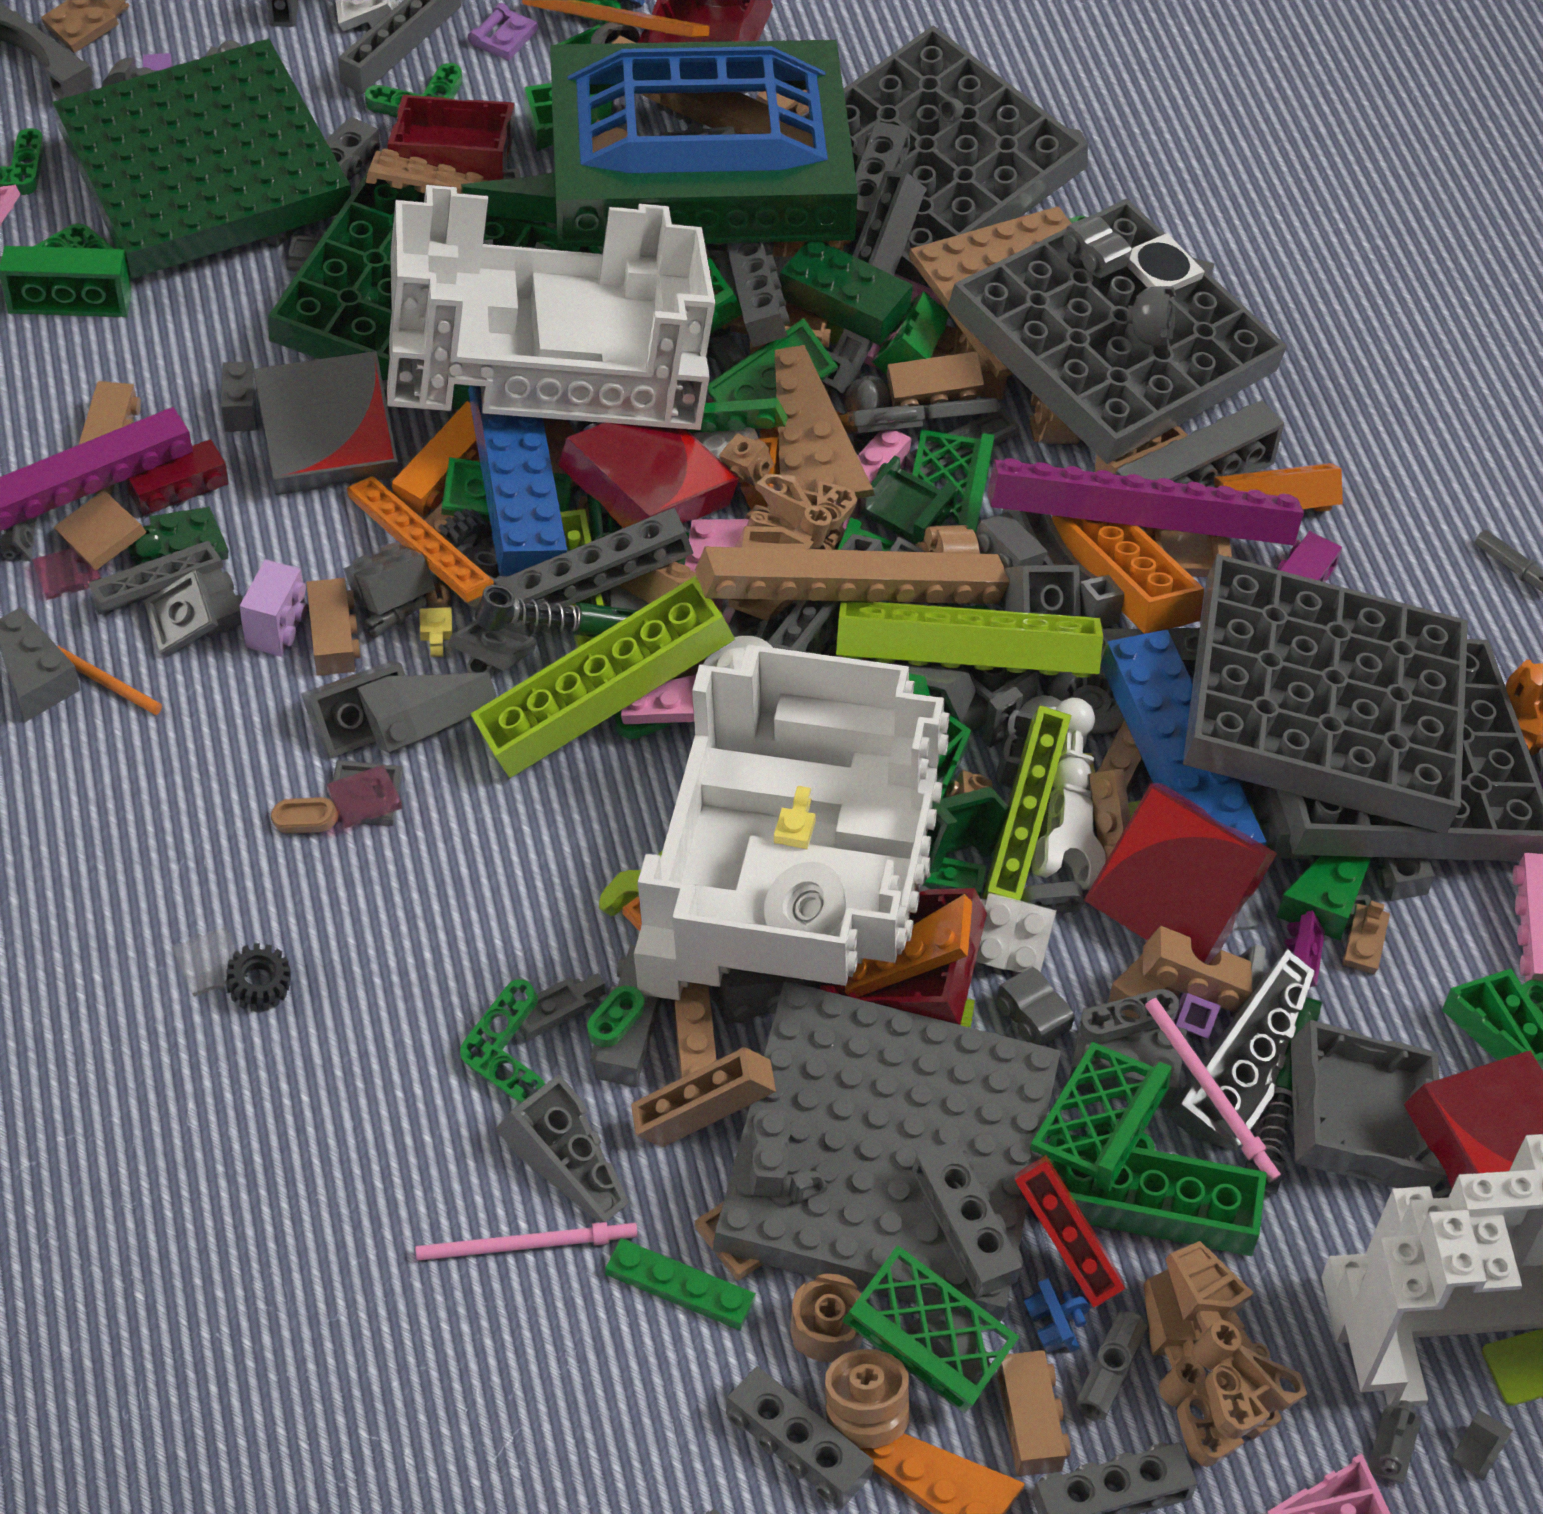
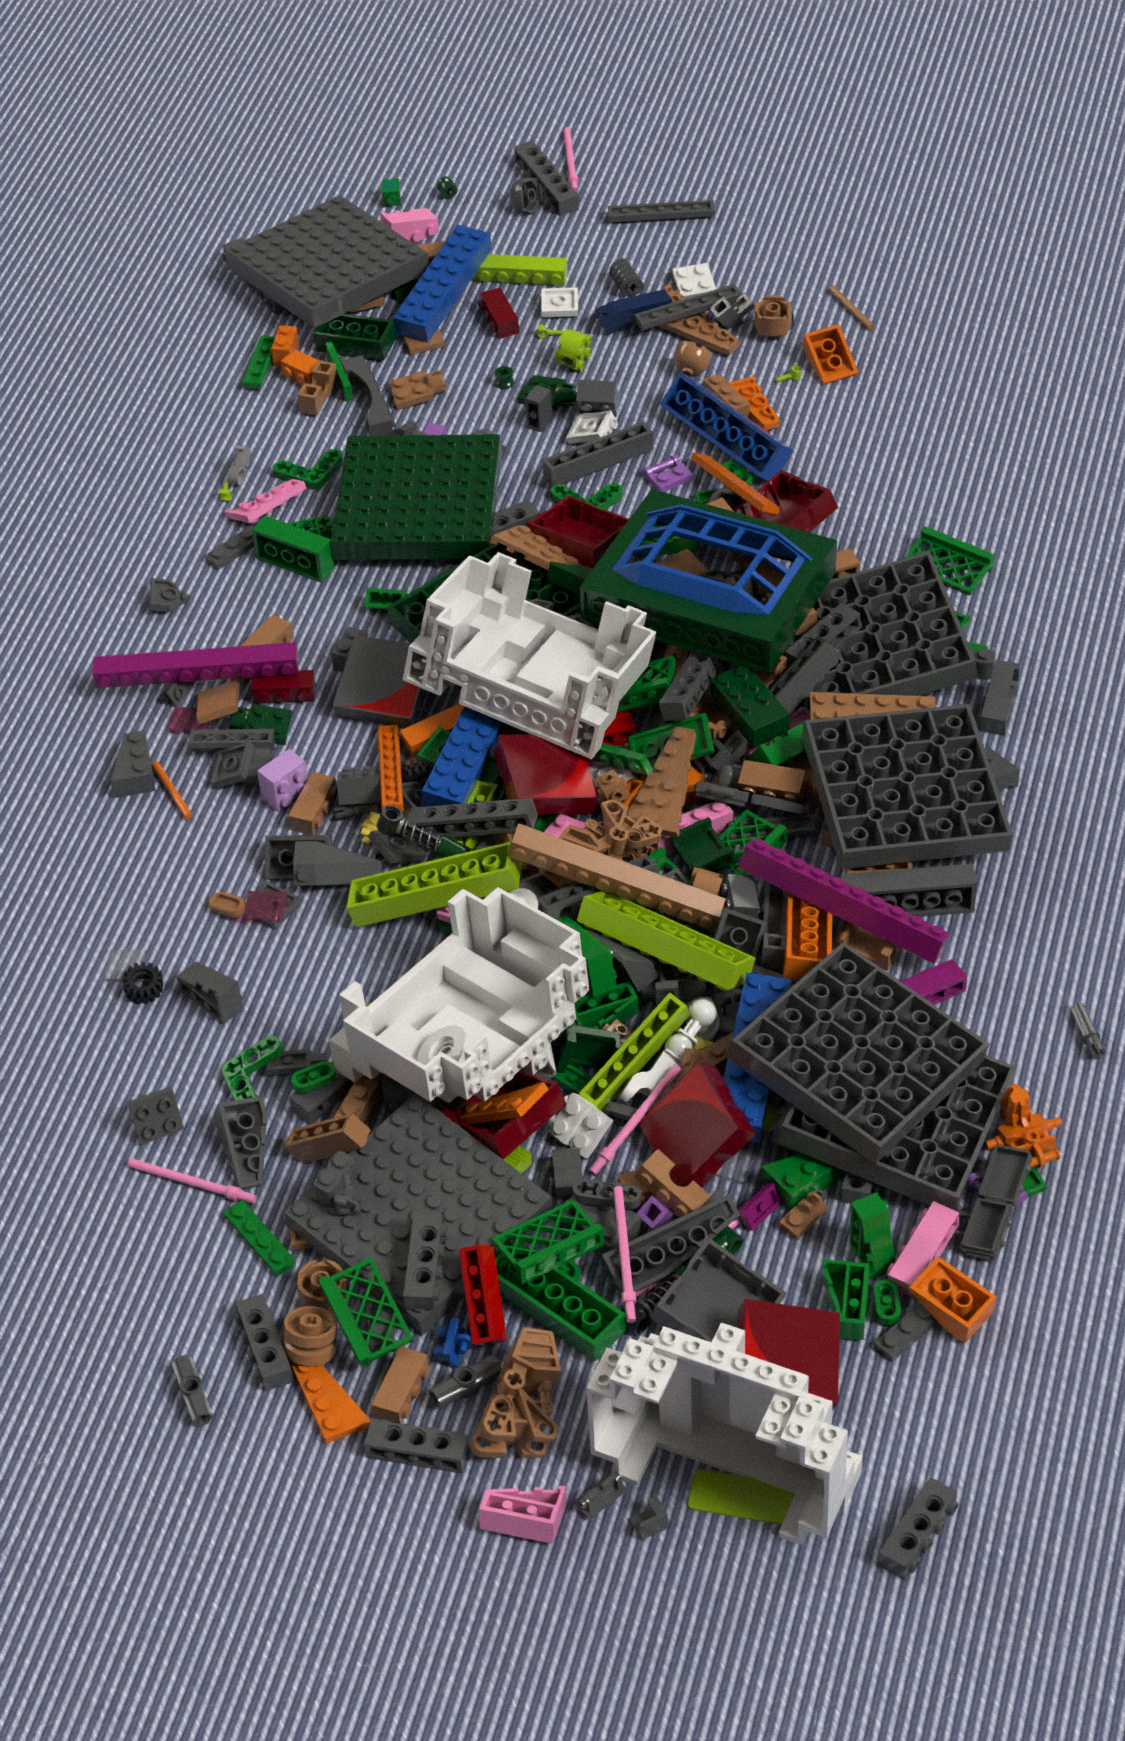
camera: 35 degrees right, 5 degrees down
(240, 310) = (382, 598): none -> green brick
(370, 949) = (211, 991): none -> dark grey wedge
(417, 1166) = (155, 1115): none -> dark grey plate
(796, 824) = (477, 1006): light yellow plate -> none
(921, 17) = (955, 550): none -> green fence
(951, 109) = (900, 610): dark grey hinge -> none
(1068, 959) = (607, 1153): none -> bright pink bar
(1097, 245) = (917, 726): dark grey brick -> none
(1117, 174) = (1000, 698): none -> dark grey wedge
(1153, 316) = (922, 783): dark grey cylinder -> none
(1164, 264) = (958, 754): tile -> none
(1313, 485) = (963, 928): orange brick -> none
(1484, 928) = (872, 1234): none -> green wedge

